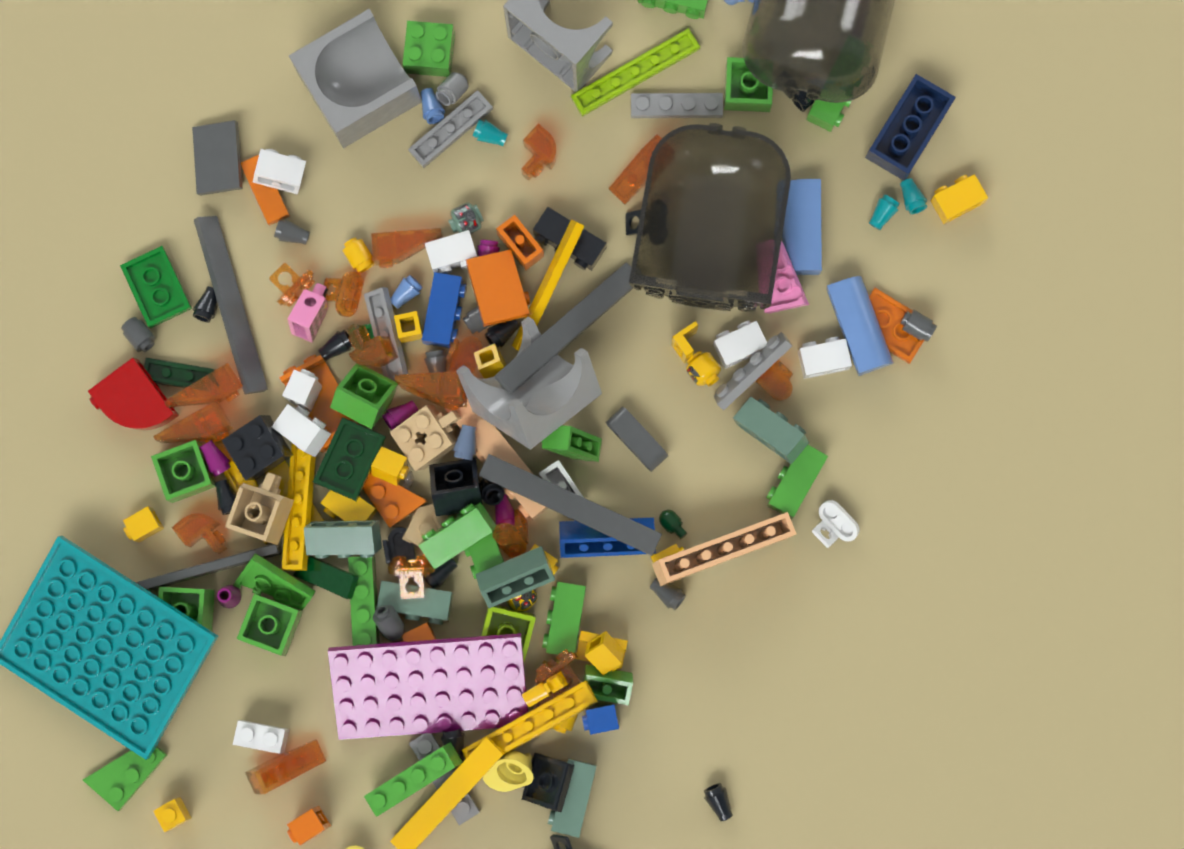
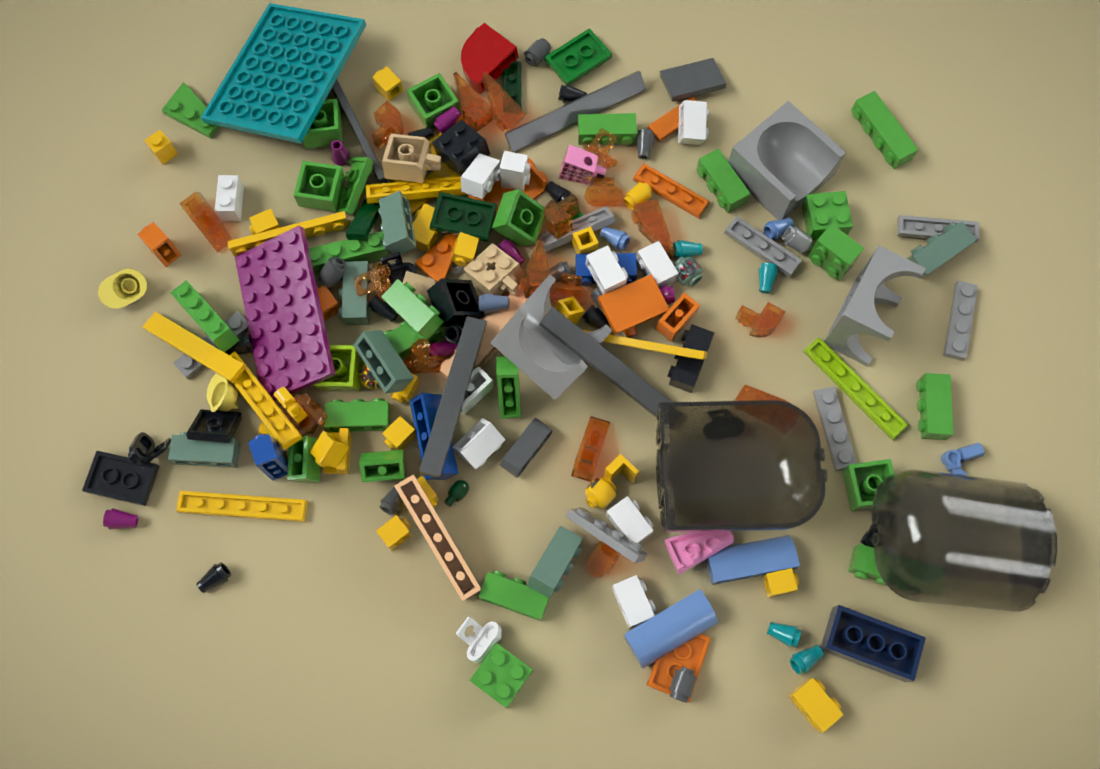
camera: 75 degrees right, 10 degrees down
(264, 260) = (620, 125): none -> bright green brick
(306, 698) = (263, 222): none -> yellow brick
(321, 636) = (312, 227): none -> yellow plate
(357, 216) = (672, 191): none -> orange tile
(359, 154) = (722, 181): none -> bright green brick
(436, 214) = (687, 249): none -> teal cone
(453, 308) = (606, 270): none -> white brick
(479, 51) = (835, 252): none -> bright green brick
(596, 576) = (399, 434): none -> yellow brick
(624, 489) = (479, 443): none -> white brick
(630, 598) = (382, 465): none -> bright green brick
(643, 764) = (242, 506): none -> yellow tile
(652, 369) = (590, 449): none -> clear orange slope
(705, 597) = (394, 532): none -> yellow brick
(832, 203) = (780, 582): none -> yellow brick
(877, 508) = (501, 675): none -> bright green brick

